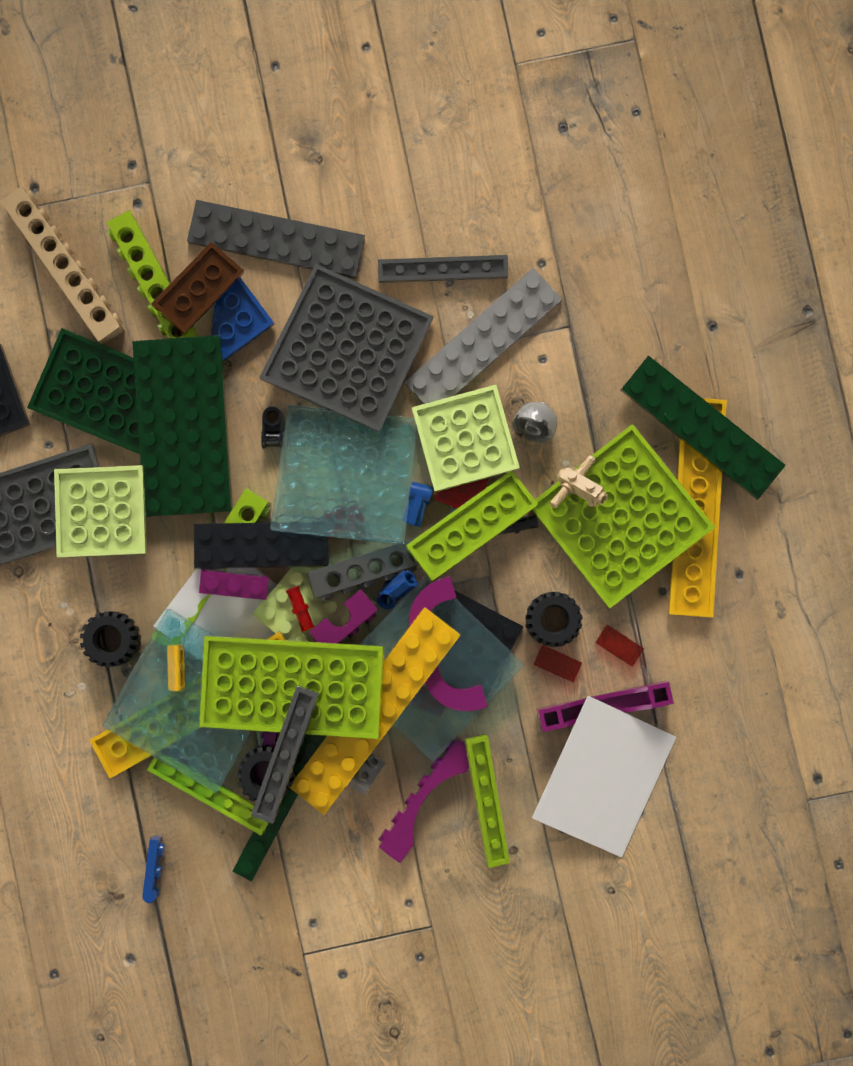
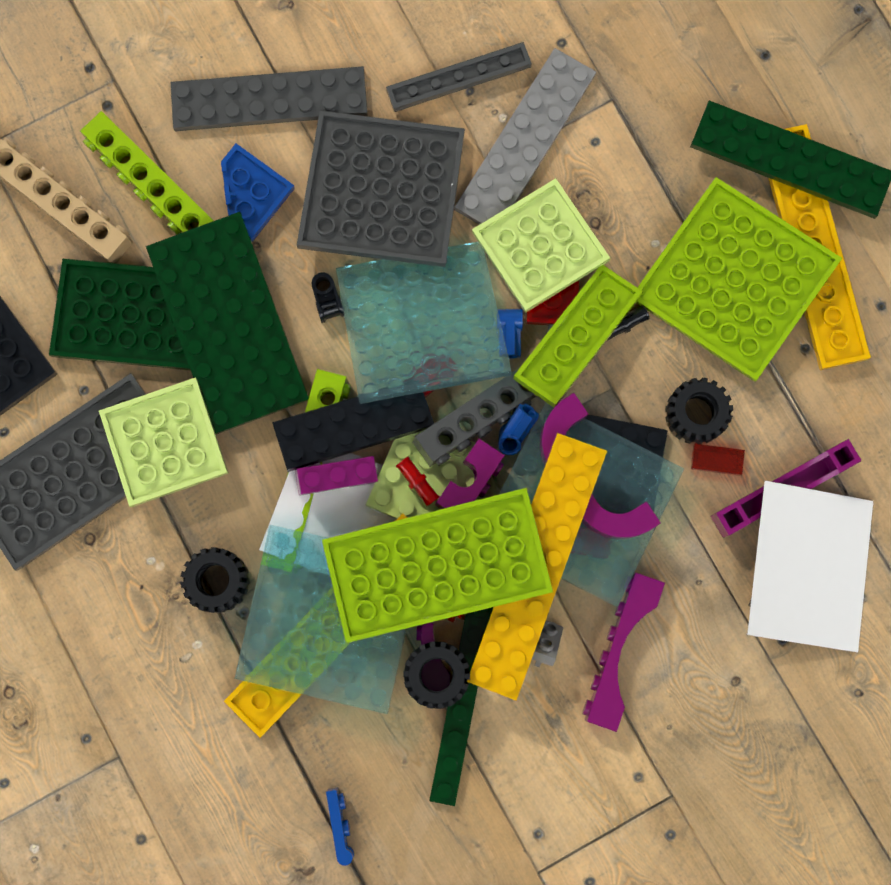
camera: 15 degrees left, 5 degrees down
(176, 667) = (299, 585): yellow slope -> none
(197, 288) = (200, 170): reddish brown plate -> none
(224, 801) = (395, 723): lime plate -> none
(285, 754) = (454, 642): dark grey plate -> none
(487, 800) = (691, 632): lime plate -> none
(536, 421) = (610, 206): light grey cylinder -> none
(576, 483) = (677, 255): tan piece -> none
(619, 645) = (778, 419): clear red tile -> none

